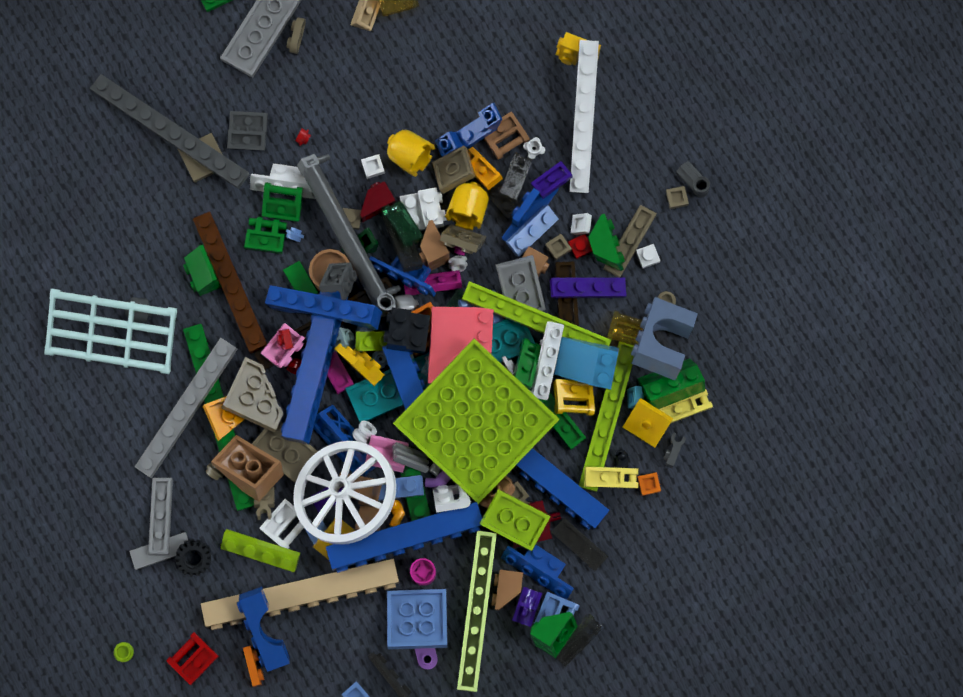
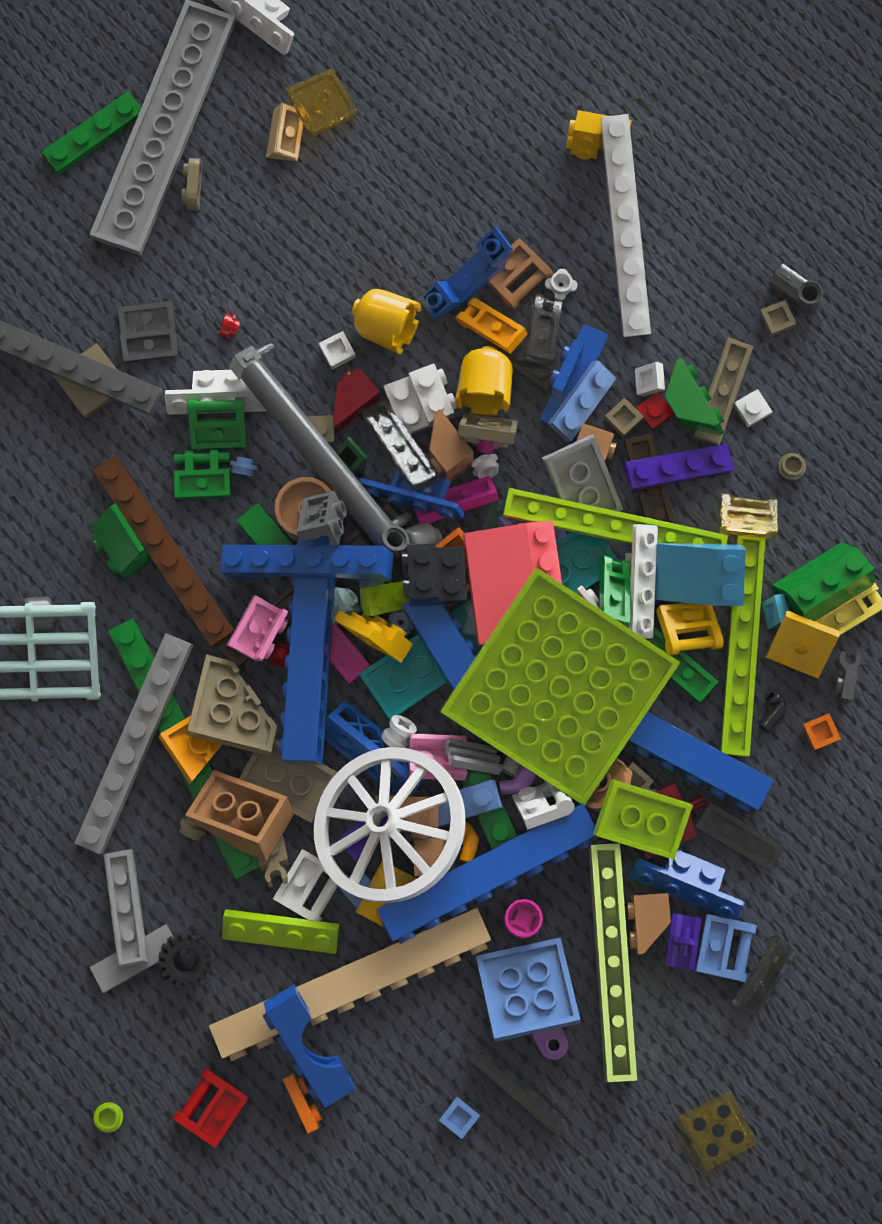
camera: 10 degrees left, 0 degrees up
(284, 339) = (260, 618): red plate -> none
(403, 223) = (397, 422): clear green plate -> none
(453, 169) = (454, 333): dark tan plate -> none
(552, 179) = (597, 323): dark purple plate -> none
(553, 632) = (731, 973): green slope -> none
(610, 477) = (765, 732): light yellow plate -> none
(649, 352) = (786, 541): sand blue arch -> none

